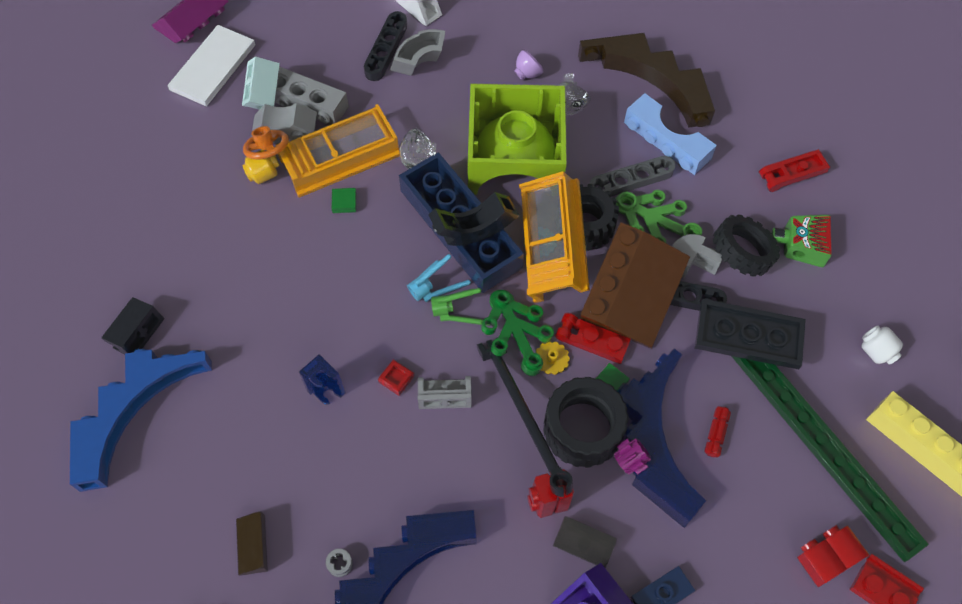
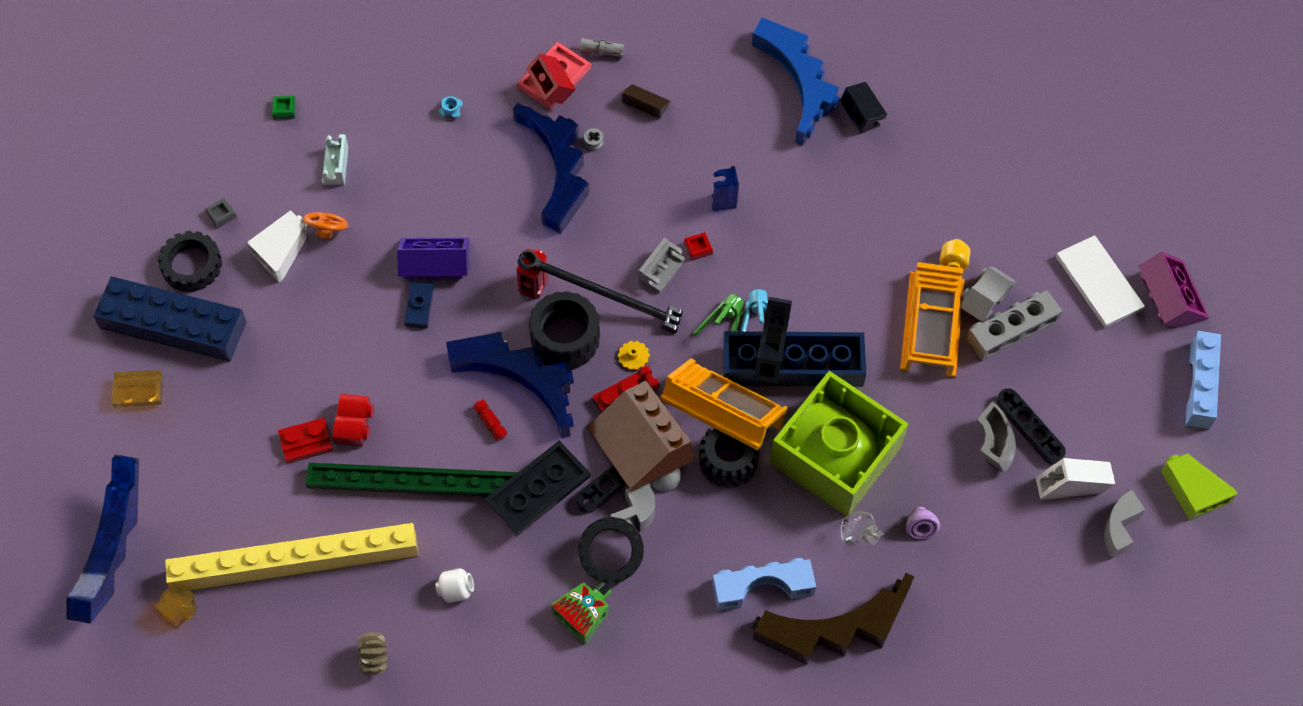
camera: 125 degrees right, 0 degrees up
(260, 83) = (1036, 290): light aqua hinge -> none
(263, 139) = (967, 258): orange piece -> none
(343, 200) = (881, 299): green tile -> none
(415, 148) = (888, 373): clear piece -> none
(517, 328) = (675, 341): green plant -> none
(584, 542) = (489, 283): clear smoke slope -> none
(613, 376) = (584, 380): green tile -> none
(632, 178) = (743, 525): dark grey beam -> none
(632, 456) = (515, 335): magenta gear -> none
(655, 215) = (693, 512): bright green plant -> none
(794, 170) = (651, 662): red plate -> none

